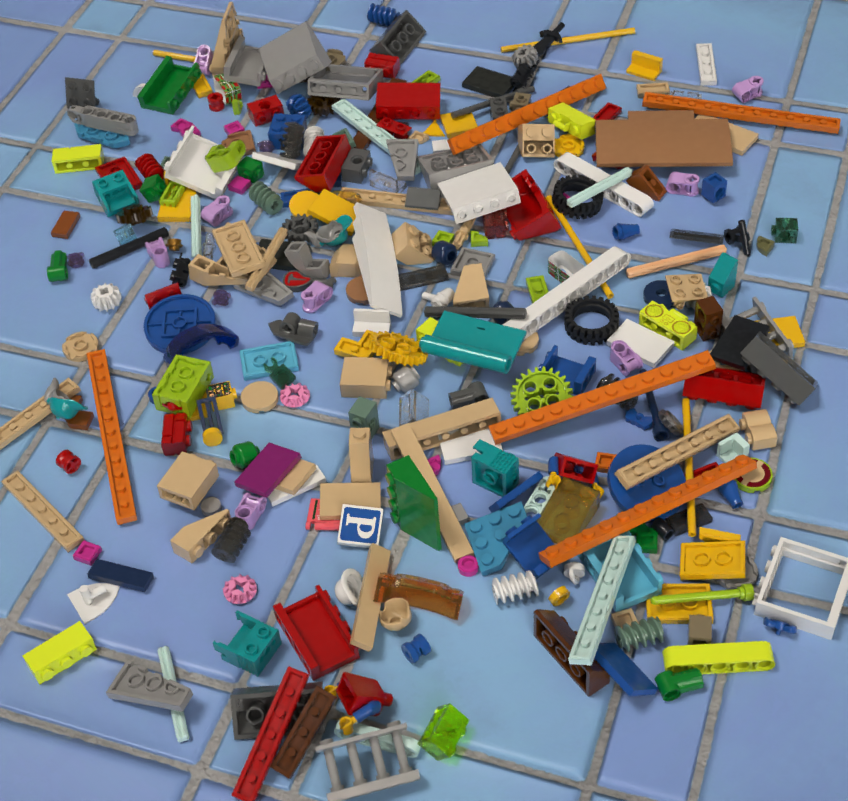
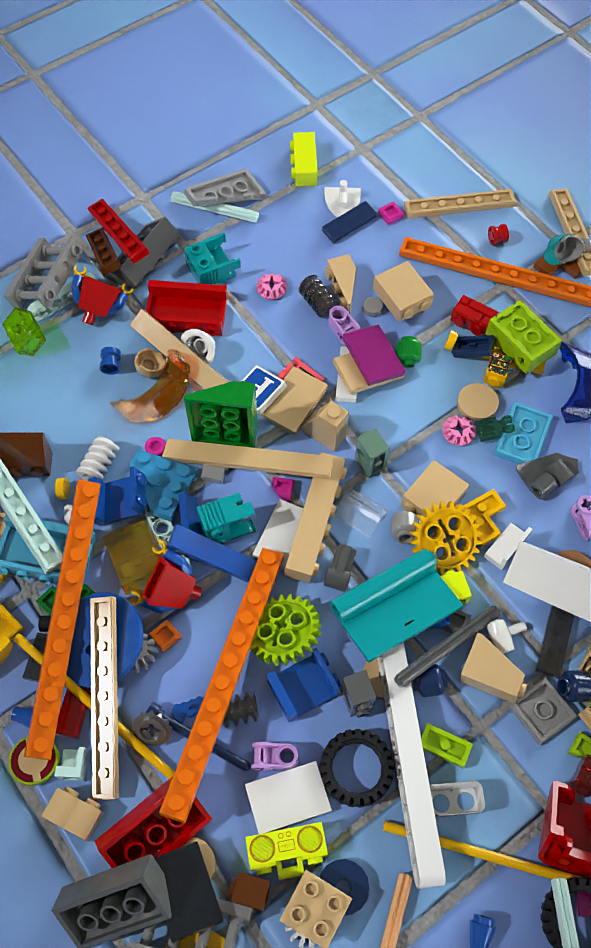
camera: 120 degrees right, 15 degrees up
(528, 459) = (211, 553): none -> blue tile
(548, 333) = (358, 694): none -> dark grey brick

